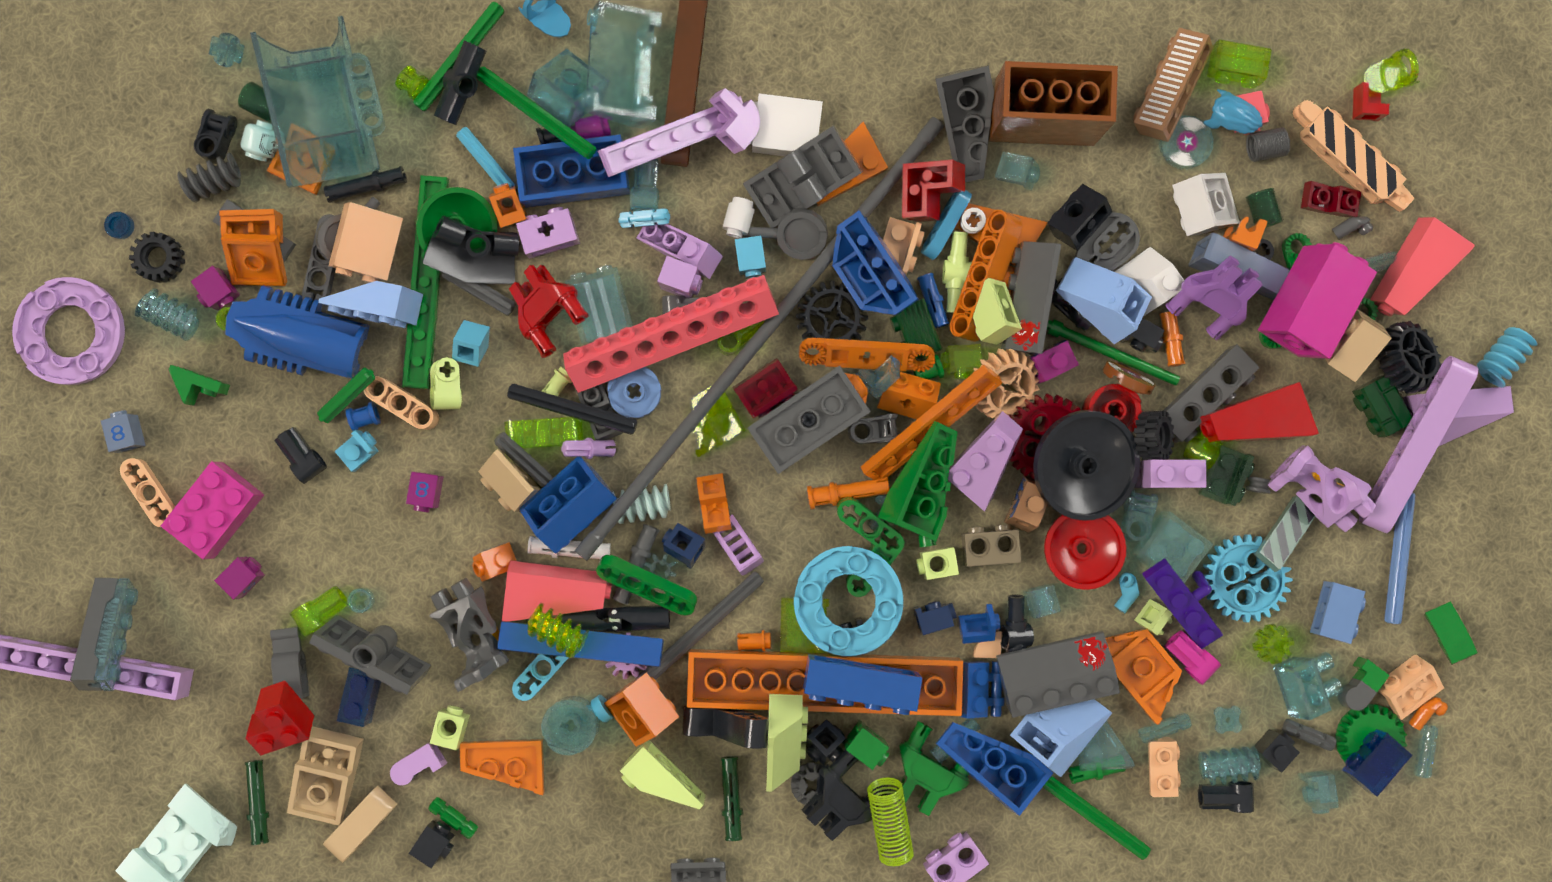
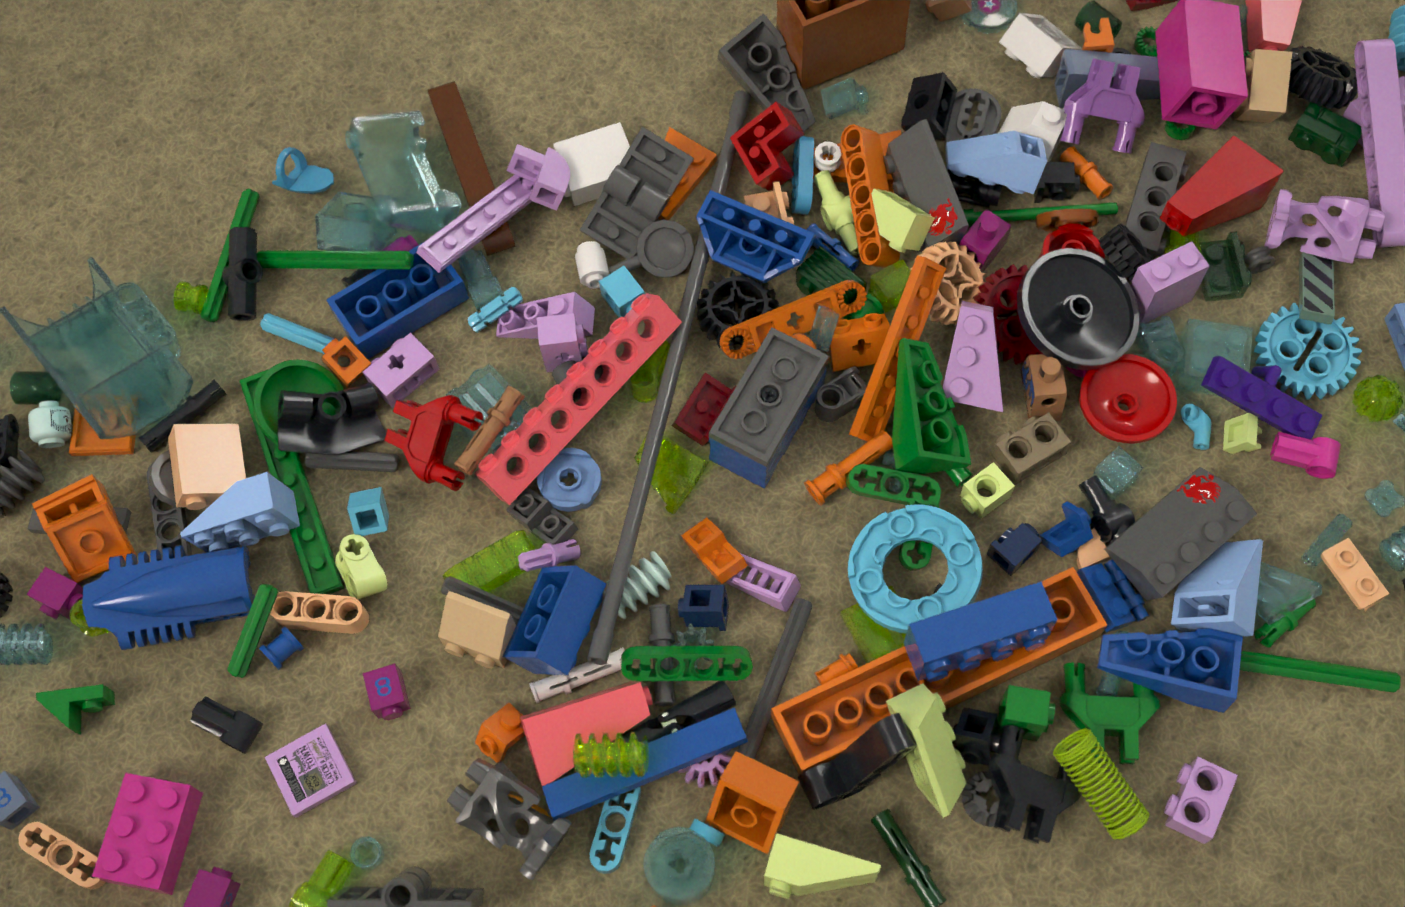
camera: 15 degrees left, 20 degrees down
(346, 519) = (310, 770): none -> lavender tile
(357, 450) = (290, 687): medium azure bracket -> none
(557, 382) = (482, 511): yellowish green pin -> none
(572, 409) = (511, 523): black axle -> none
(586, 329) = (497, 419): none -> medium nougat pin
(1144, 670) = (1273, 491): orange wing -> none

